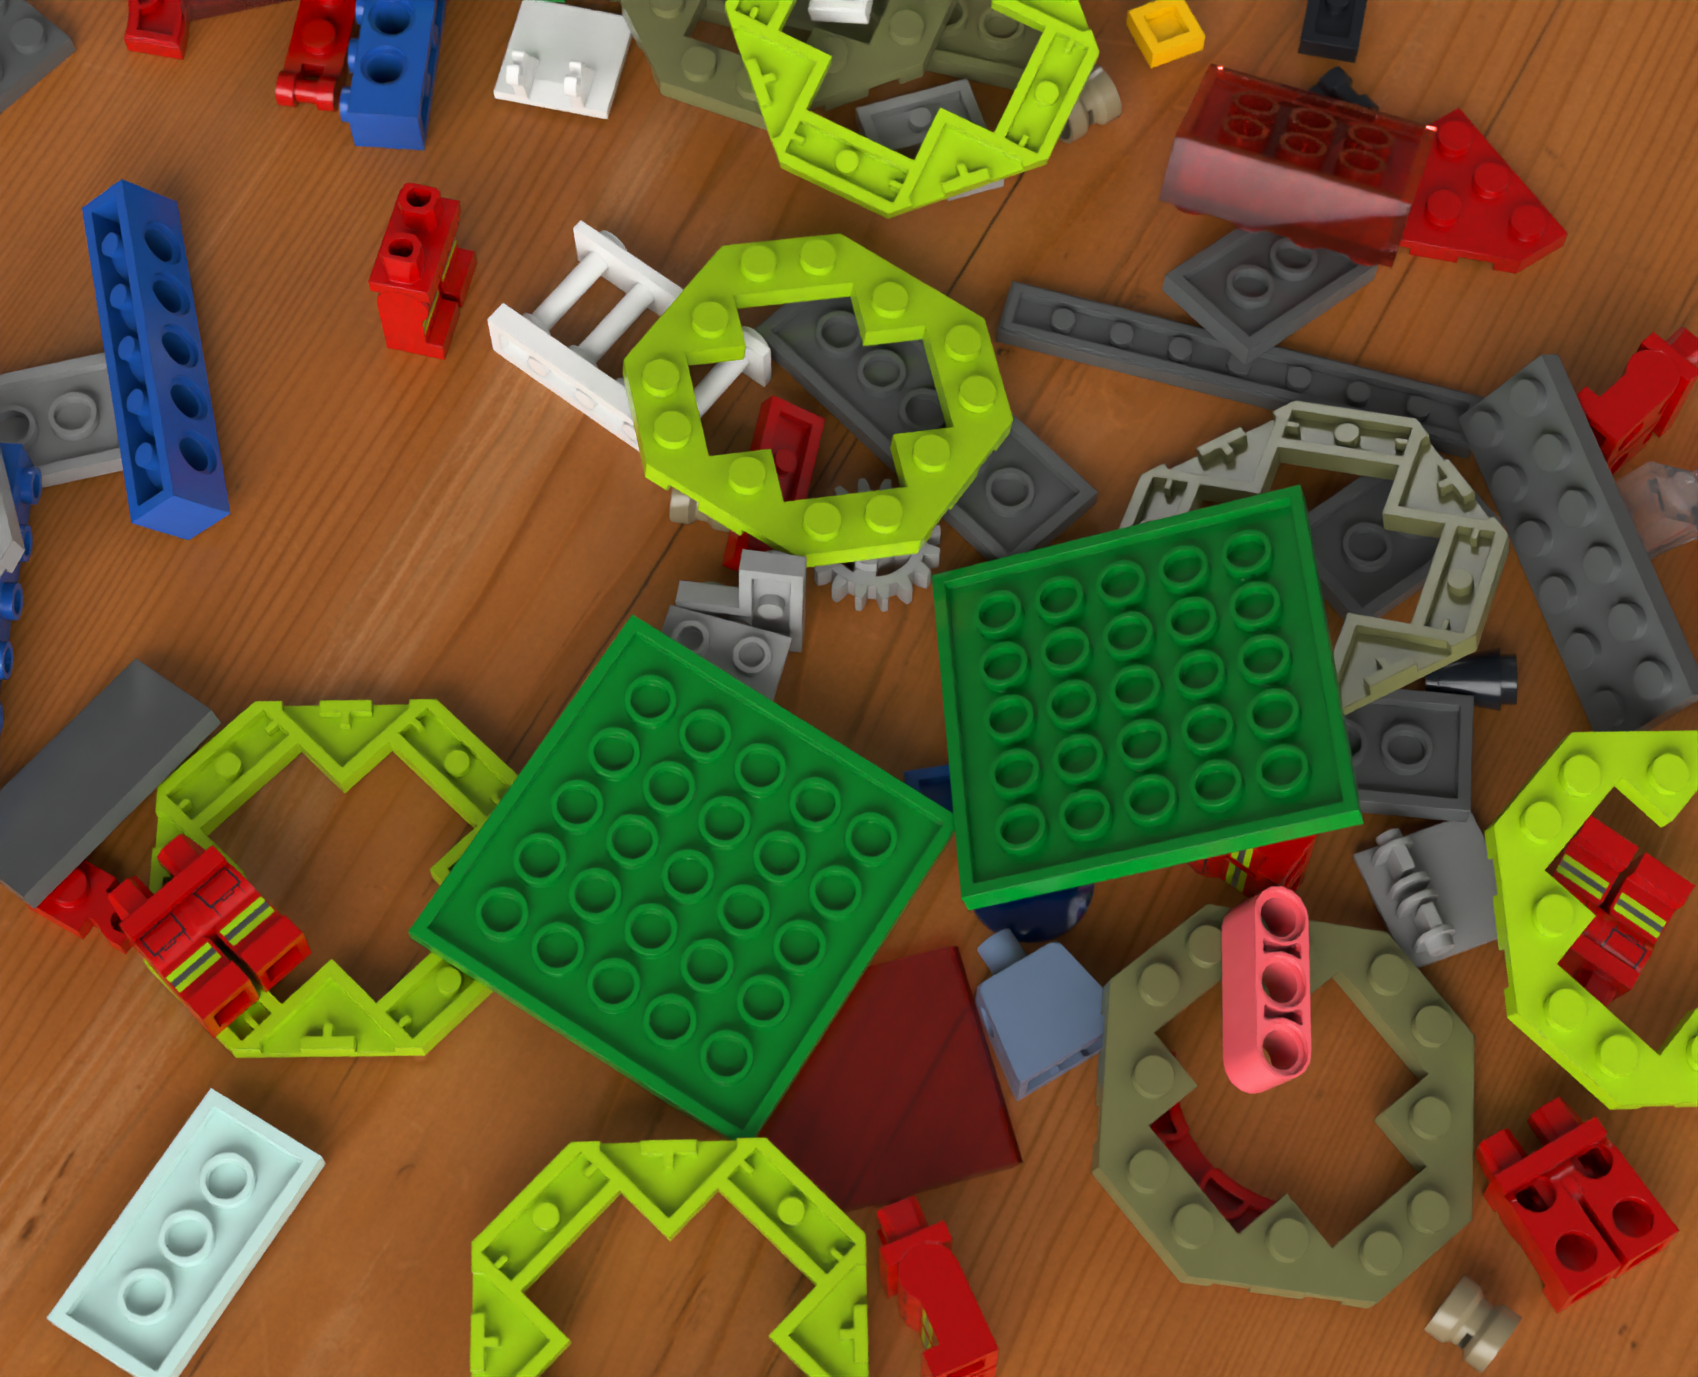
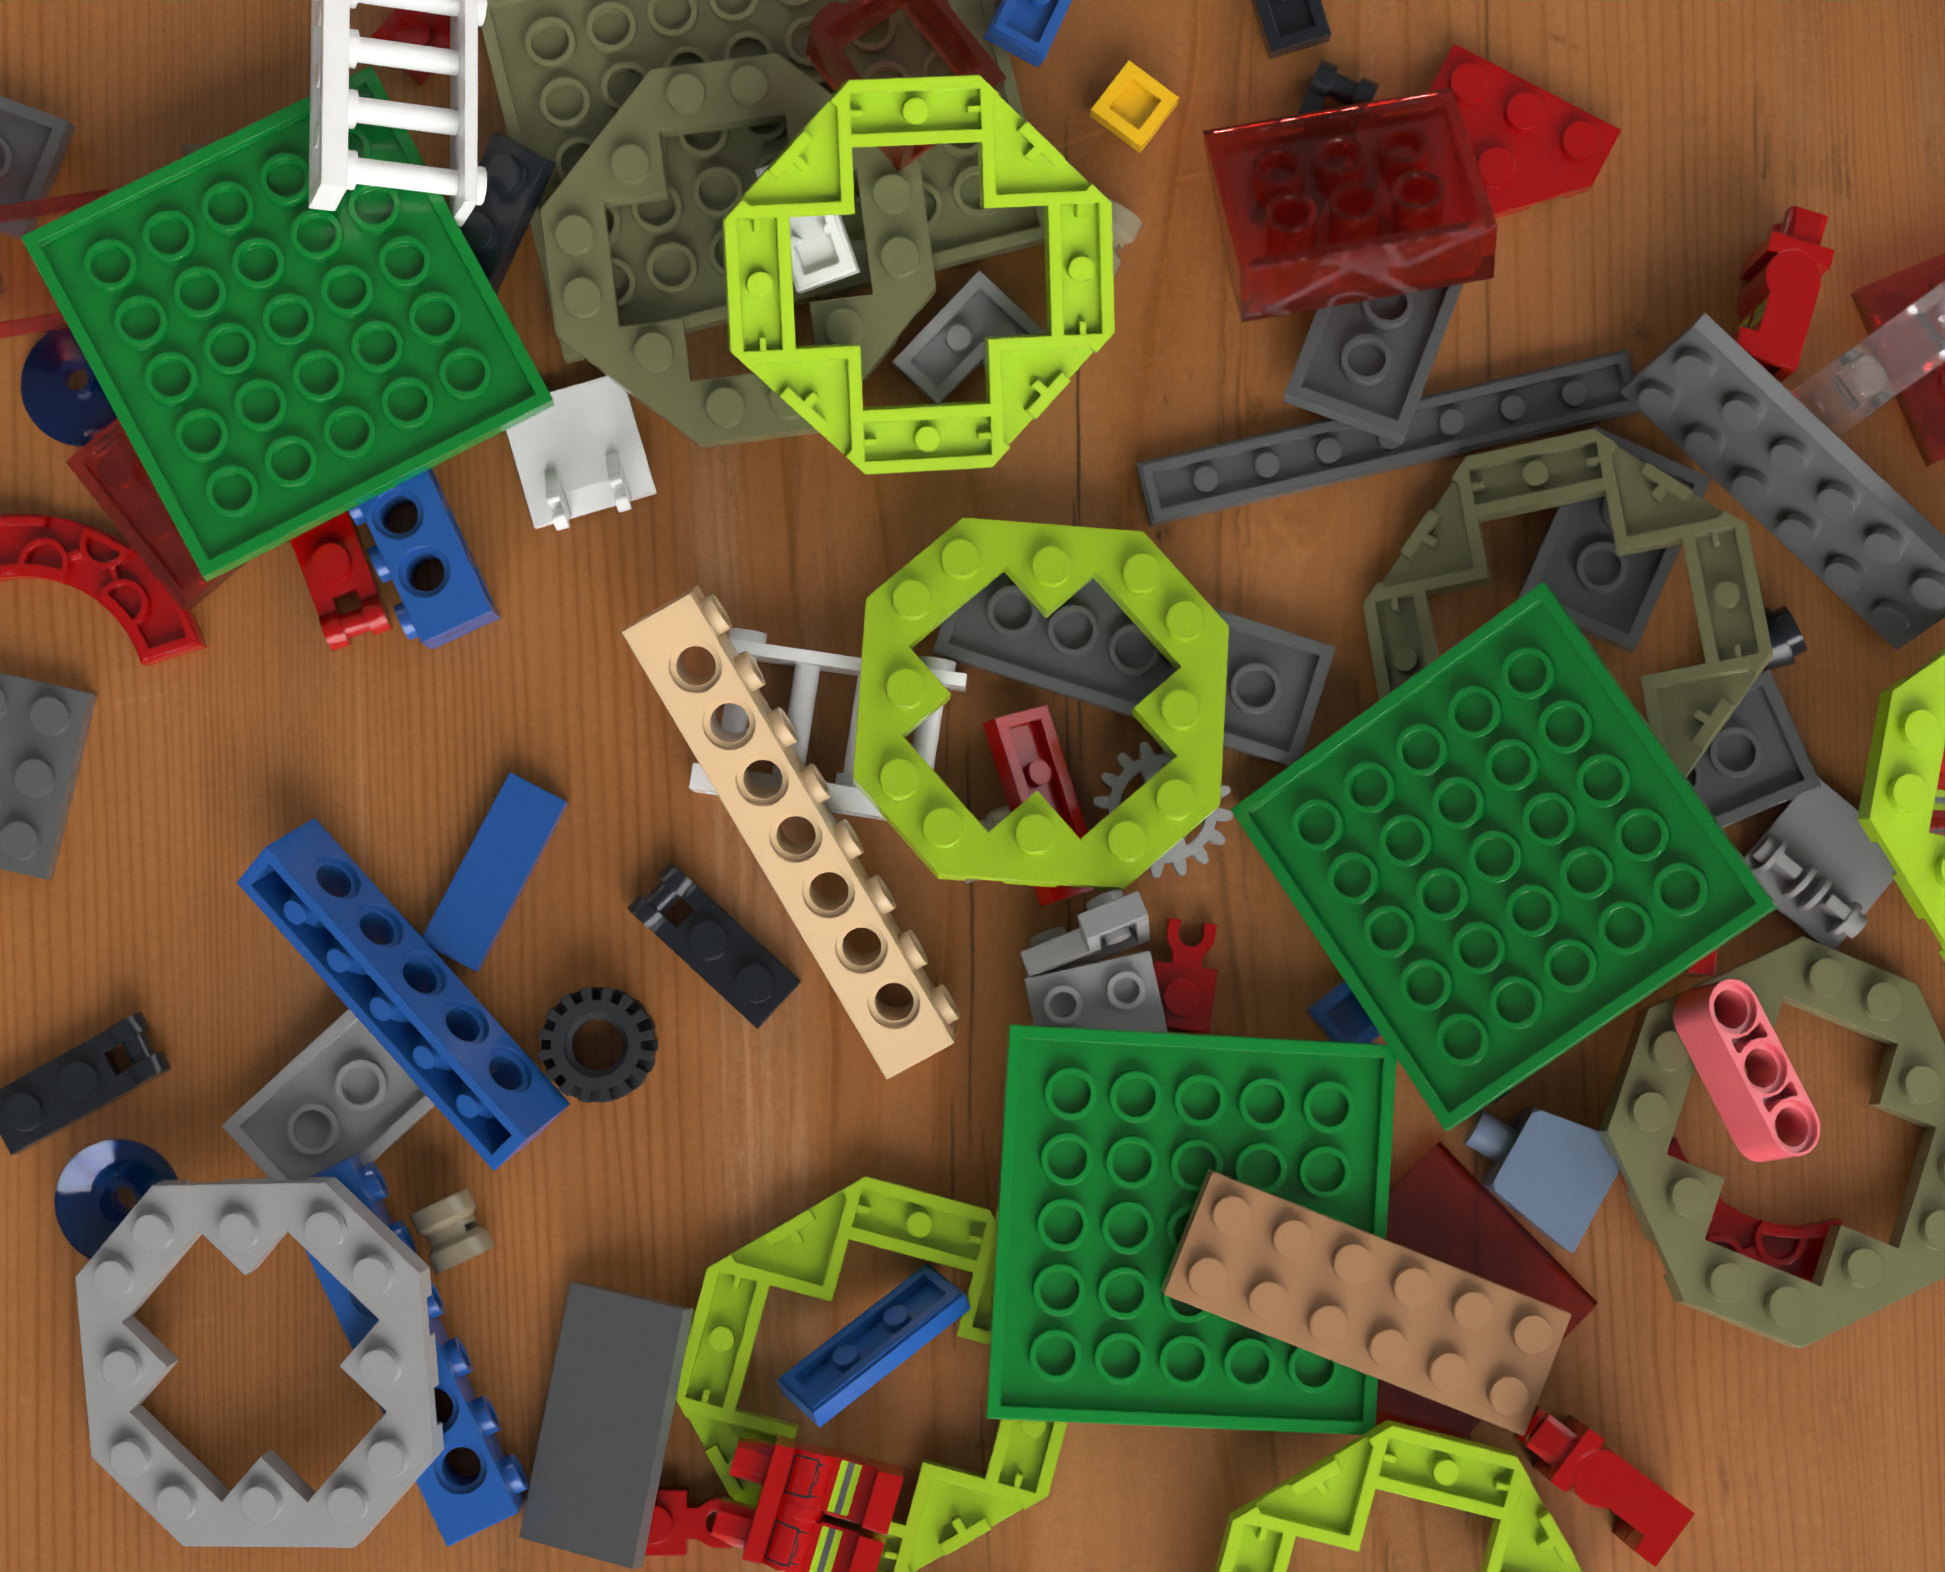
camera: 30 degrees left, 20 degrees up
(67, 564) = (452, 1230): none -> dark tan wheel
(280, 456) = (560, 1033): none -> black tyre
(290, 322) = (494, 872): none -> blue tile
(352, 827) = (873, 1344): none -> blue tile
(421, 272) = (592, 765): red hips -> none
(433, 469) = (716, 947): none -> black plate
(532, 176) = (893, 1034): none -> tan brick
(807, 1020) = (1365, 1302): none -> medium nougat plate
(813, 692) = (1183, 984): none -> red plate

